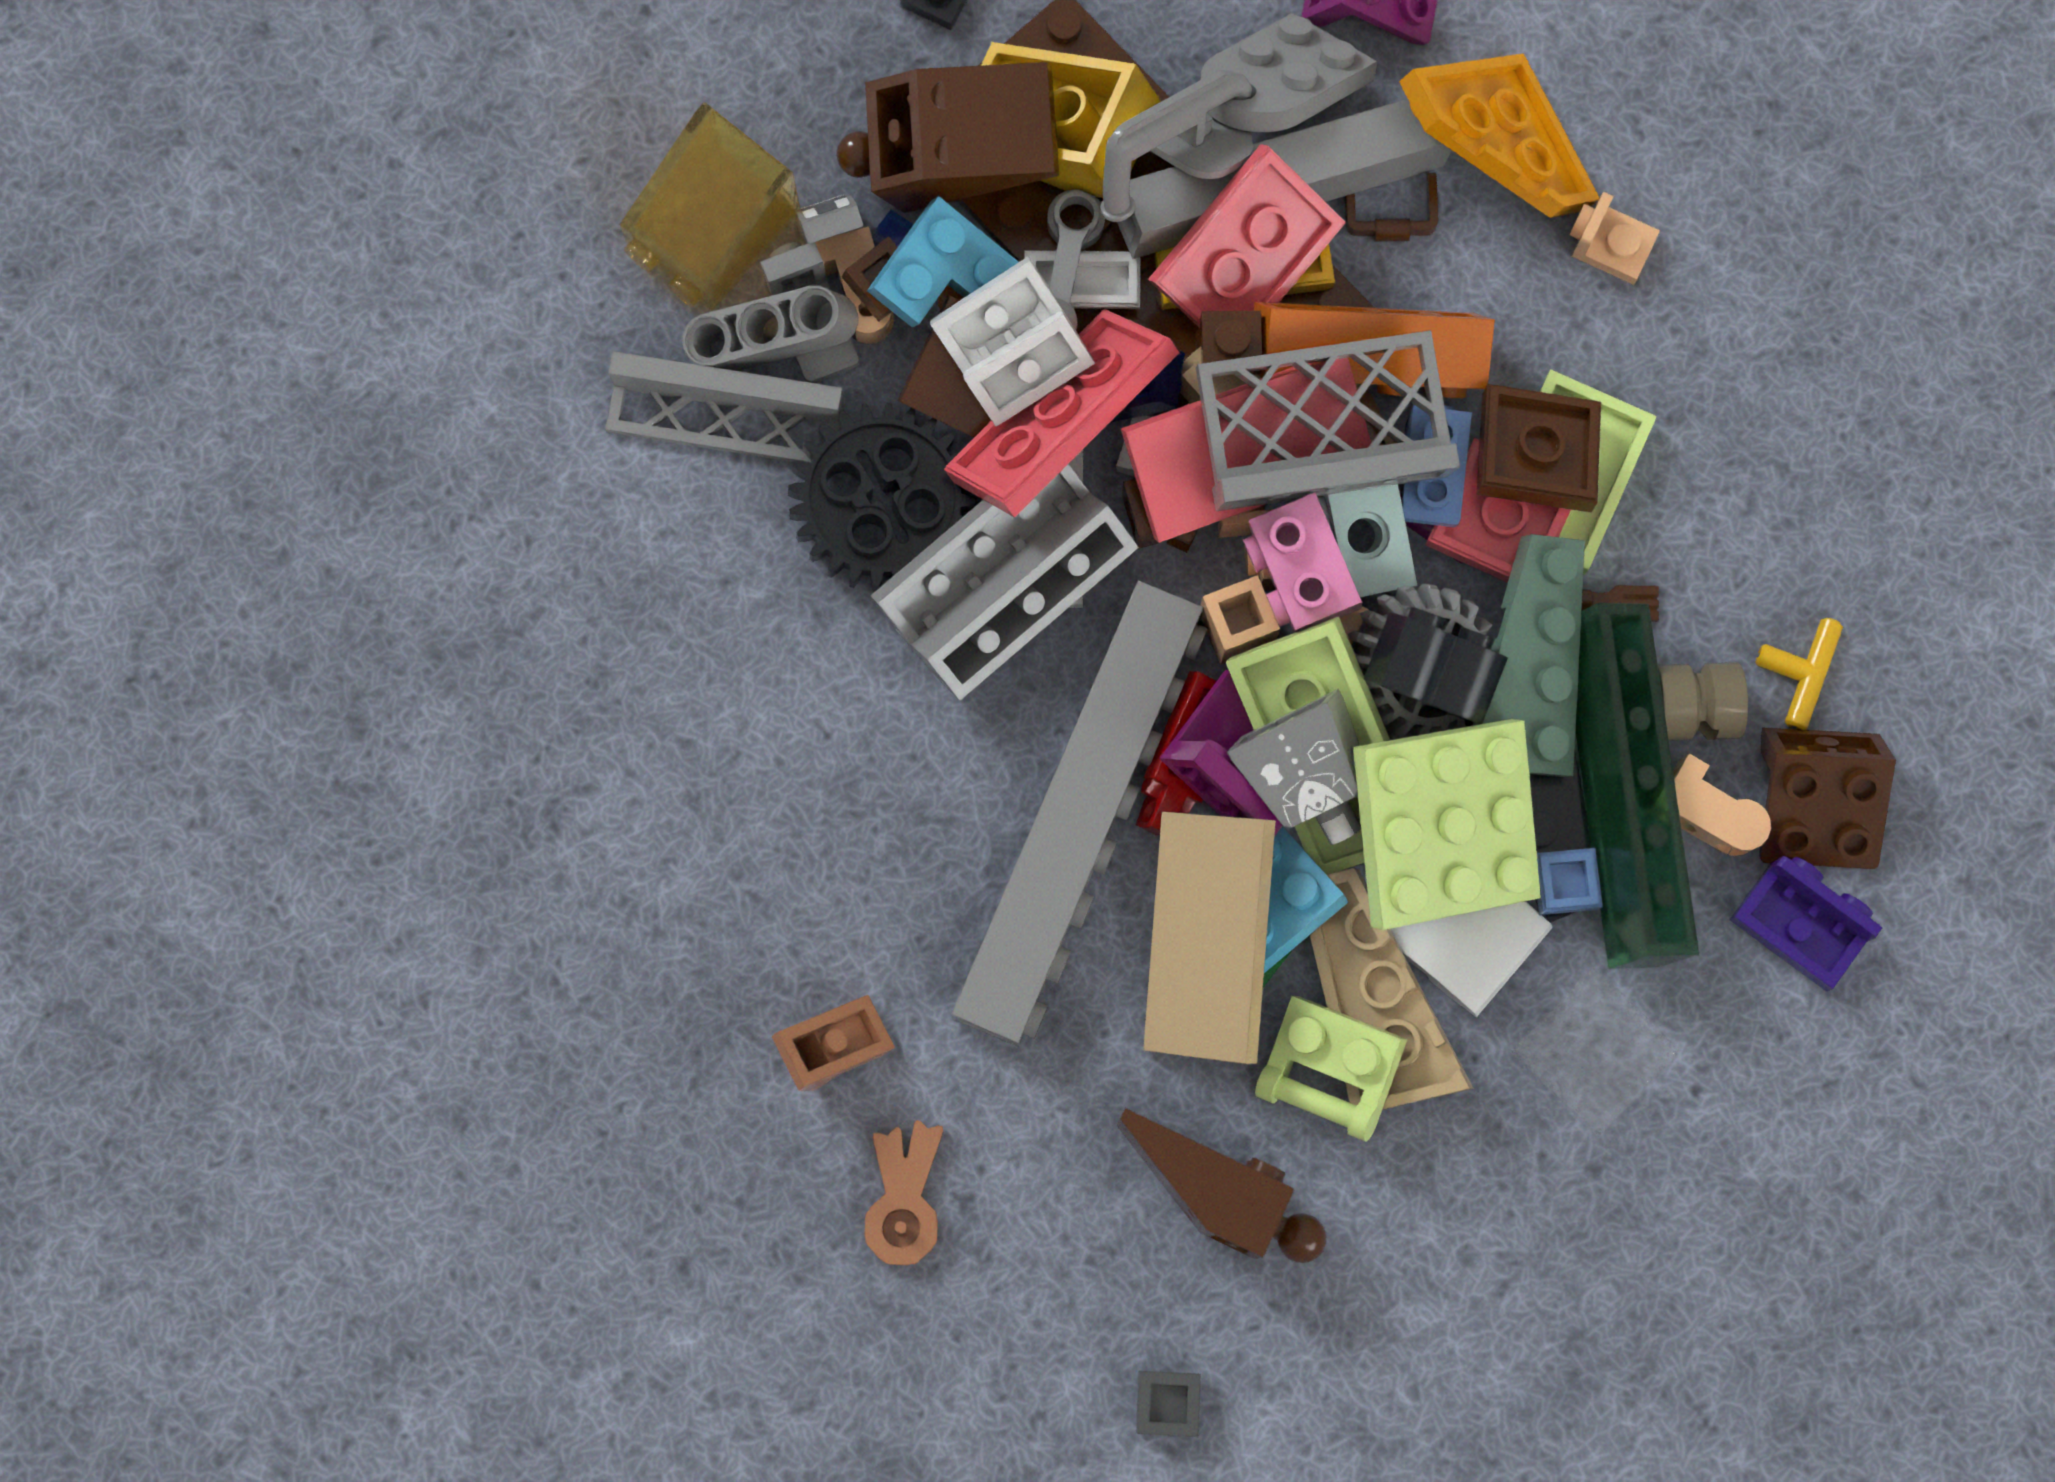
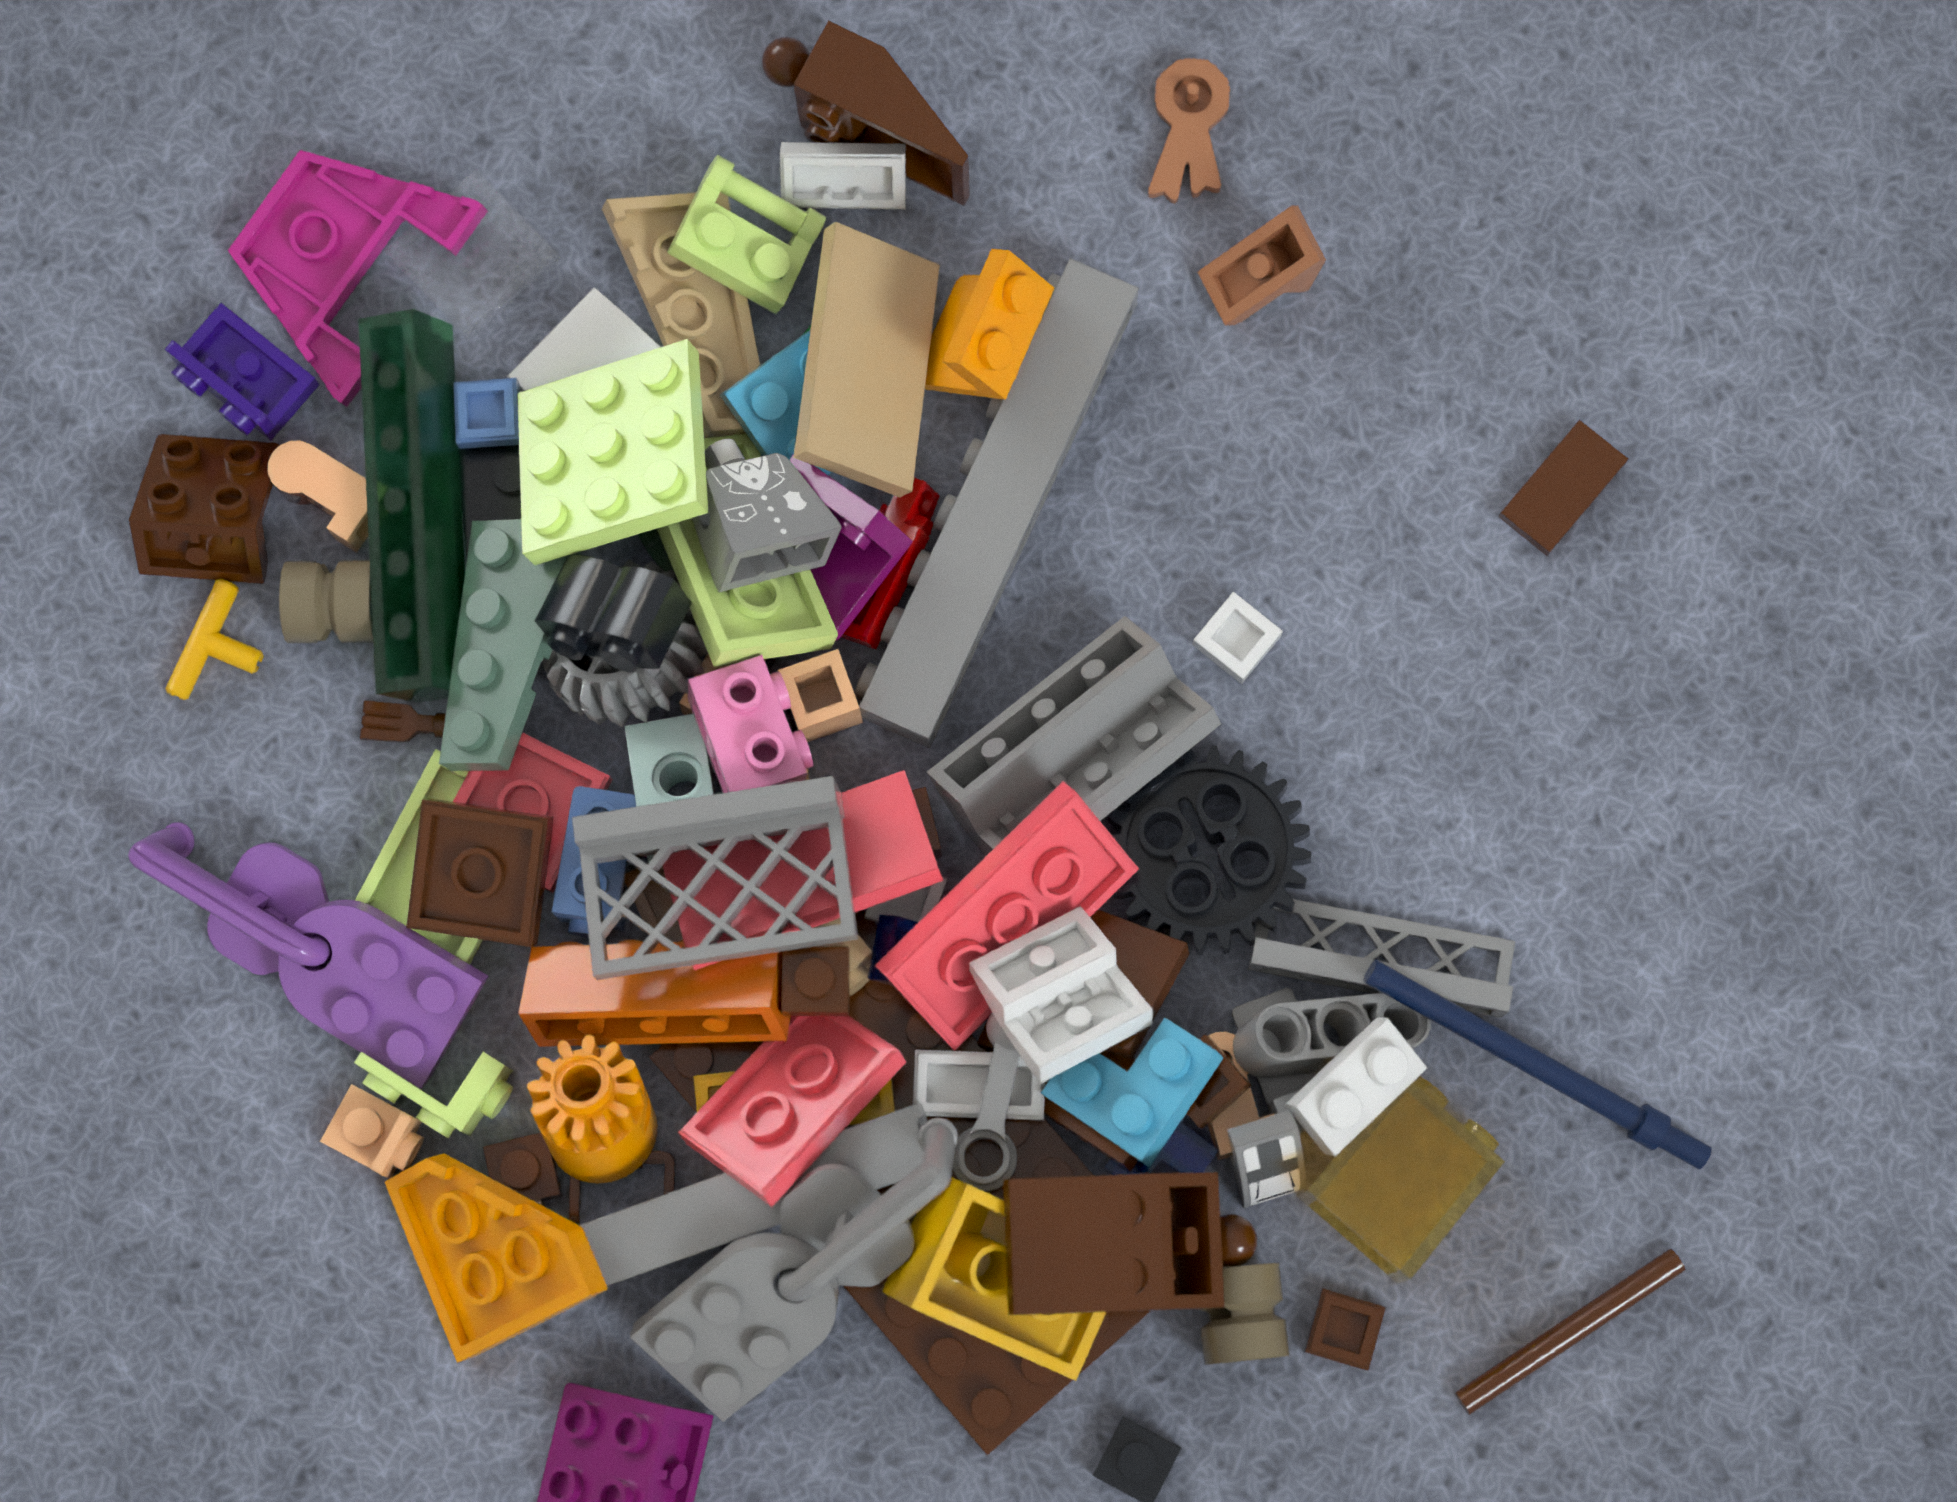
camera: 175 degrees left, 0 degrees up
(497, 273) = (1644, 1124): none -> dark blue bar
(549, 845) = (1563, 487): none -> reddish brown tile
(566, 105) = (1570, 1331): none -> reddish brown bar
(749, 270) = (1356, 1086): none -> white plate
(760, 101) = (1344, 1329): none -> reddish brown tile
(839, 89) = (1248, 1322): none -> dark tan wheel
(855, 693) = (1237, 637): none -> white plate
(1098, 968) = (987, 328): none -> light orange bracket
(1246, 1131) = (843, 175): none -> white plate
(1393, 250) = (593, 1112): none -> light orange gear
(1477, 206) = (524, 1167): none -> reddish brown plate
(1563, 258) = (479, 1095): none -> yellowish green bracket
(1667, 380) = (384, 982): none -> medium lavender plate
(1742, 1060) = (322, 236): none -> dark pink wing

